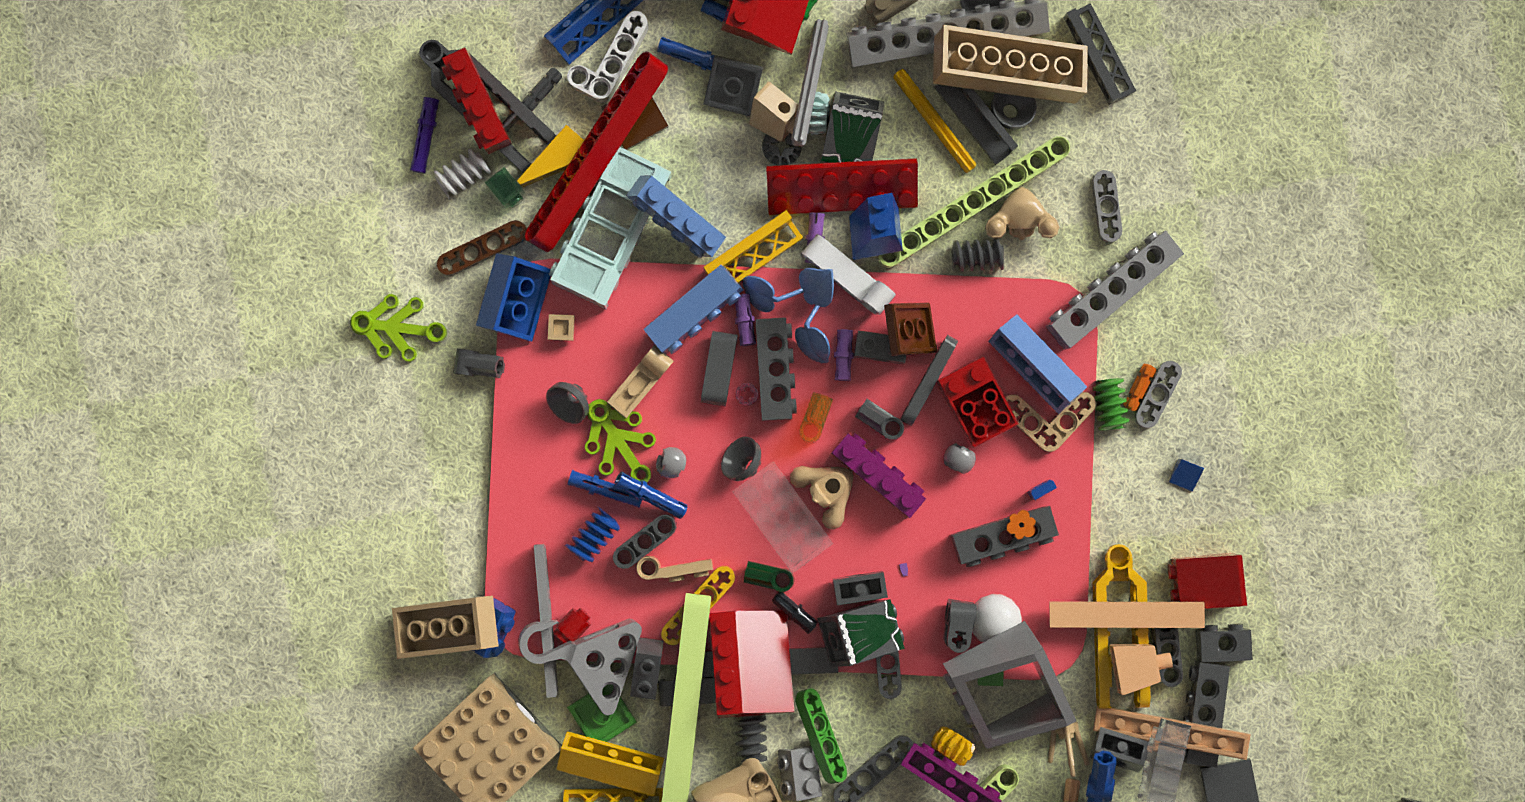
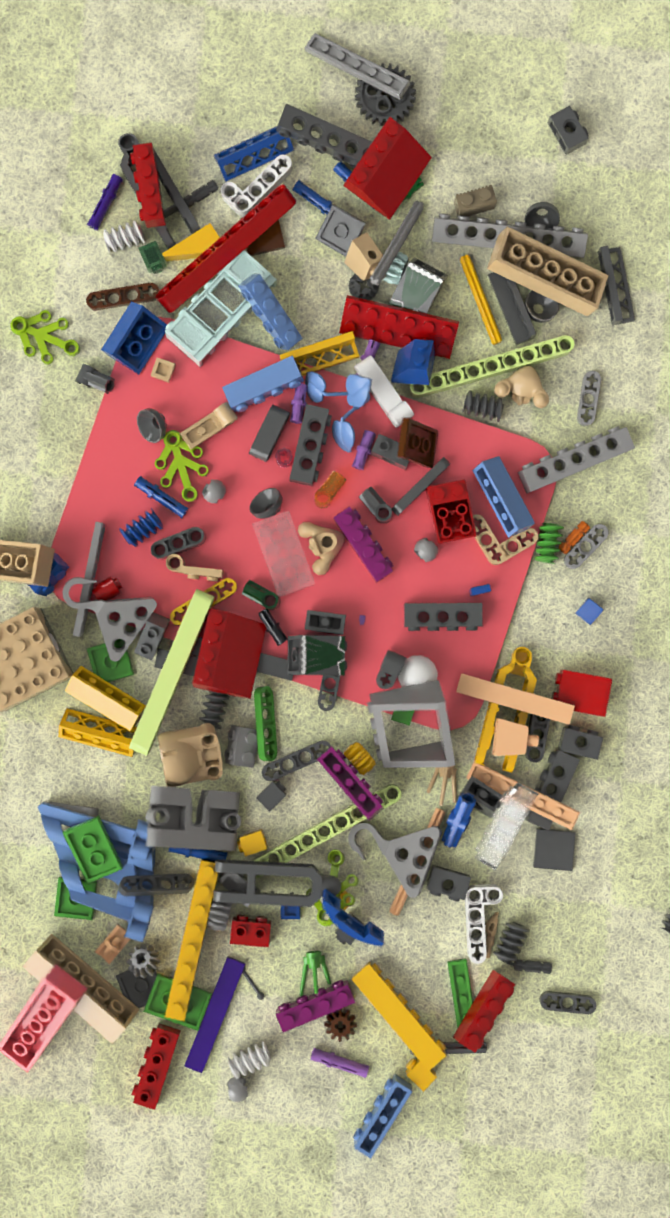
camera: 15 degrees right, 0 degrees up
(642, 491) = (195, 513): blue pin -> none
(1028, 522) = (460, 605): orange plant -> none

